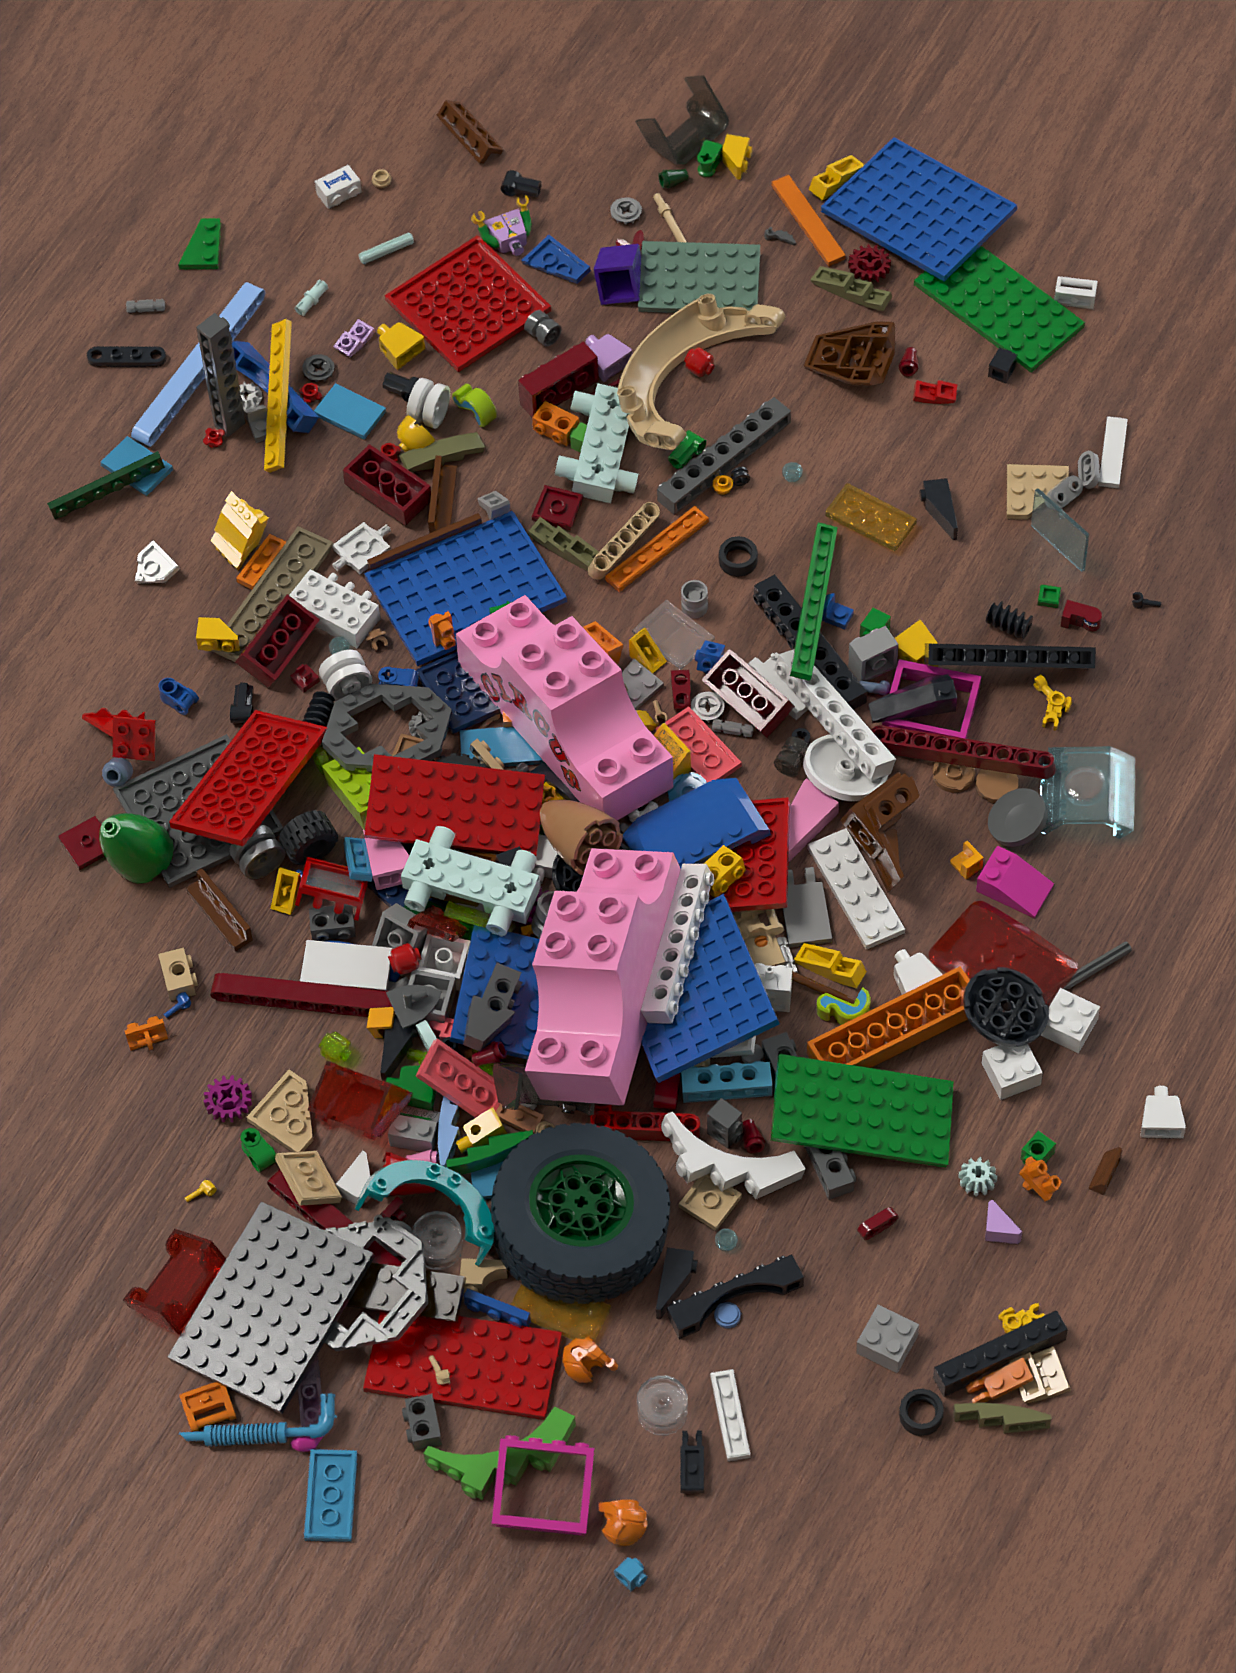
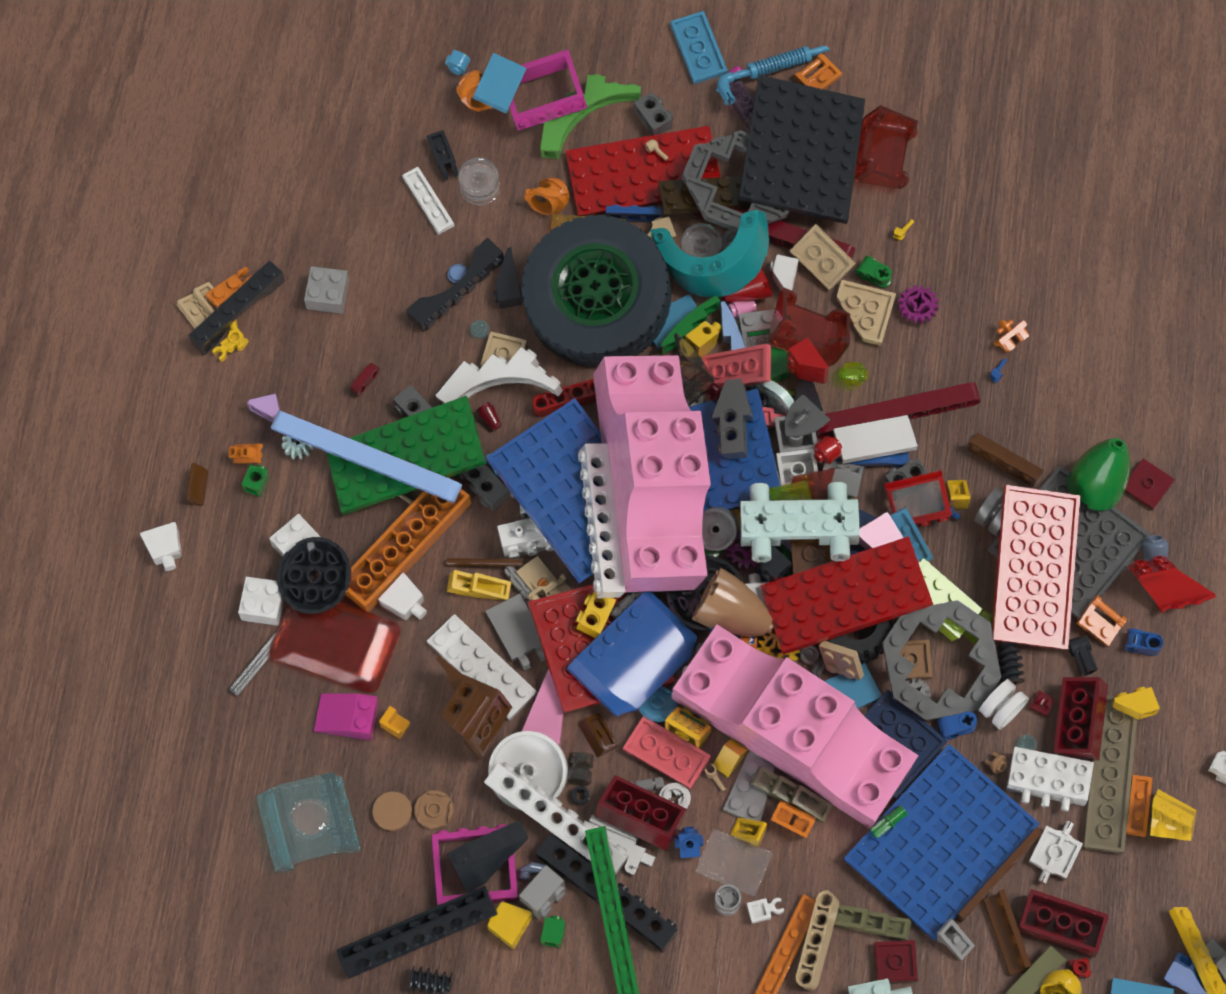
camera: 160 degrees right, 10 degrees up
(173, 963) = (1010, 382): tan brick -> none
(212, 723) = (1097, 625): none -> plate
(308, 836) = (960, 536): black tyre -> none
(379, 1020) = (826, 402): light orange panel -> none
(386, 1050) = (807, 362): none -> red slope
(442, 630) = (936, 768): orange hips -> none
(593, 1499) = (499, 83): none -> dark azure tile
(664, 586) = (761, 910): none -> white plate
(680, 689) = (704, 804): dark red leg -> none
(724, 1123) = (512, 410): dark grey brick -> none
(740, 543) = (702, 950): black tyre -> none
(759, 783) = (598, 735): none -> reddish brown slope
(836, 613) = (593, 938): blue slope -> none
(842, 1010) = (452, 546): lime animal -> none
(909, 1110) = (366, 456): none -> light blue beam
(921, 1395) = (281, 234): black tyre -> none
(971, 757) = (421, 822): dark red beam -> none
(1010, 1417) = (215, 264): olive slope -> none
(1018, 817) = (361, 773): dark grey piece -> none
(1055, 699) = (364, 912): yellow piece -> none

